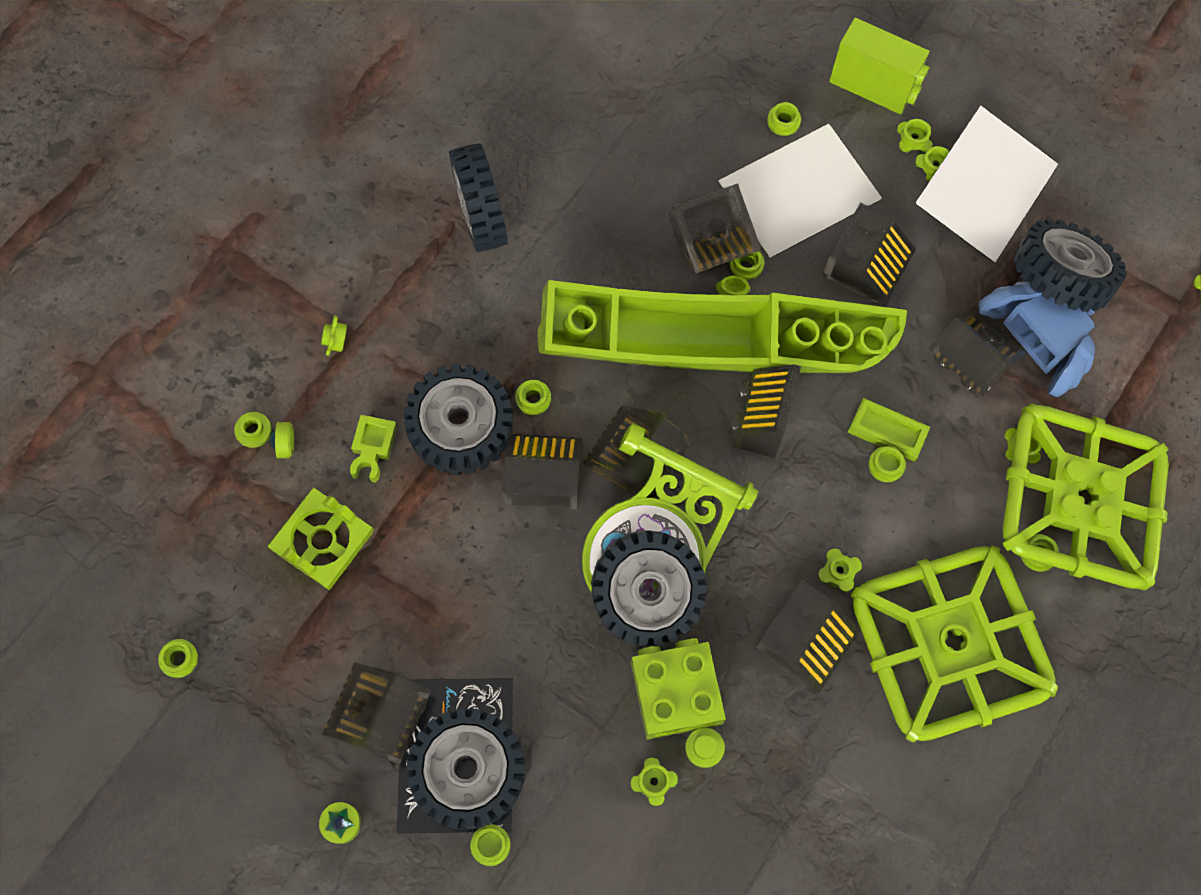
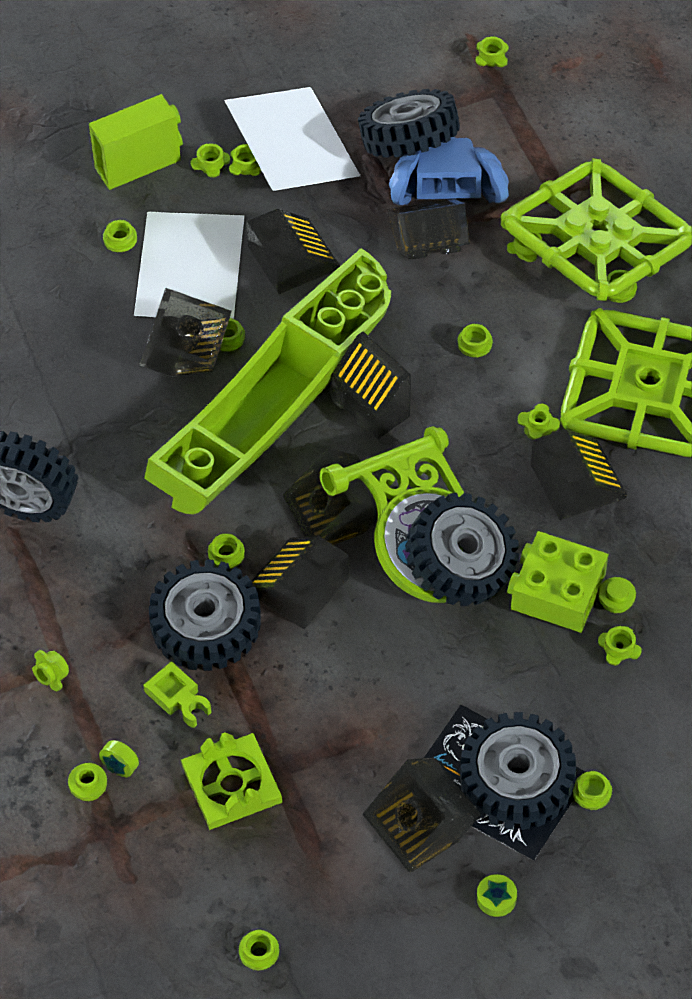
camera: 55 degrees left, 15 degrees down
(733, 286) = (242, 354): lime plate -> none
(889, 428) = (444, 324): lime tile -> none

